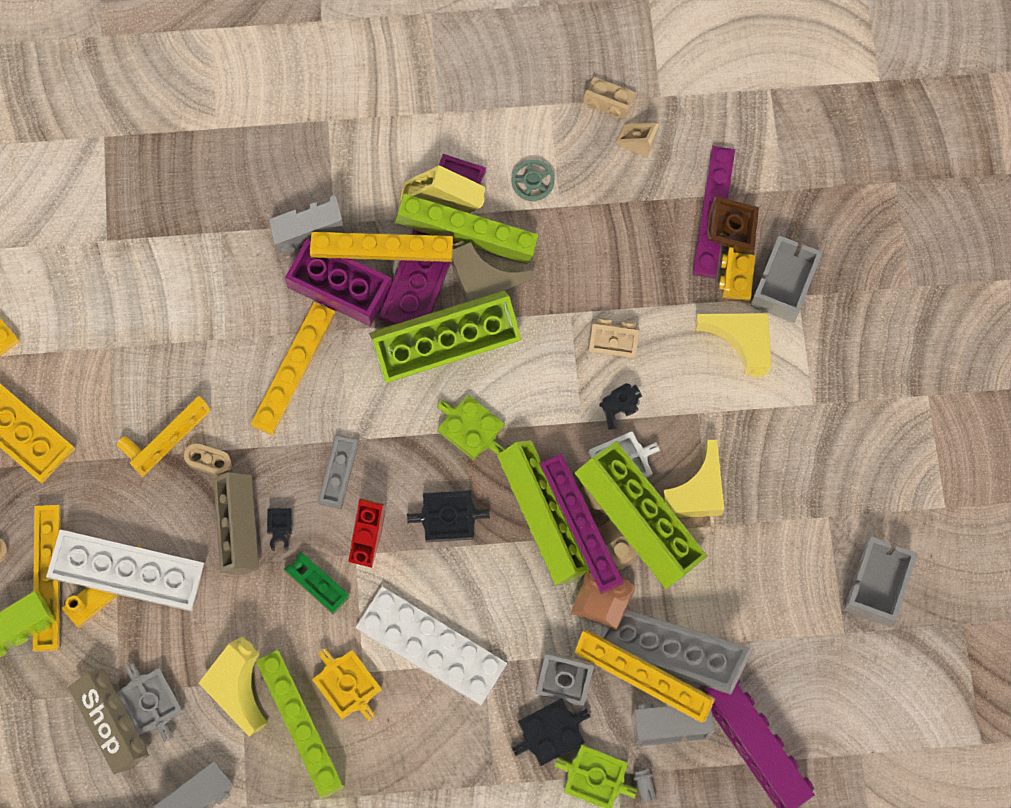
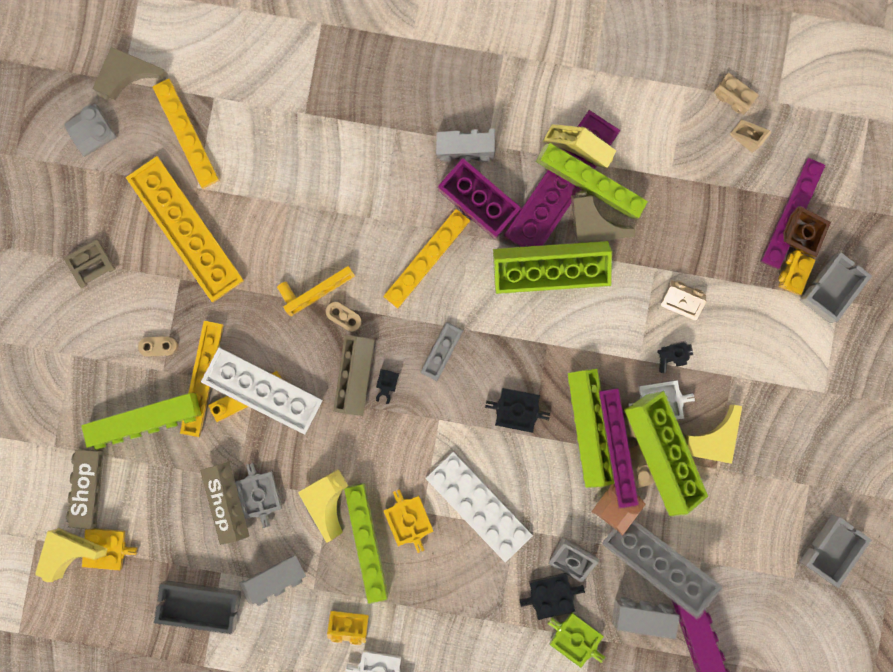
camera: 20 degrees right, 15 degrees up
(317, 583) = (404, 436): green plate -> none
(367, 532) = (451, 410): red slope -> none
(381, 246) = (520, 181): yellow plate -> none
(471, 427) = (552, 343): lime plate -> none
(533, 180) = (655, 149): sand green wheel -> none
(644, 676) = (635, 582): yellow plate -> none
(645, 785) = (611, 655): light grey pin -> none
(746, 334) = (790, 326): light yellow arch -> none

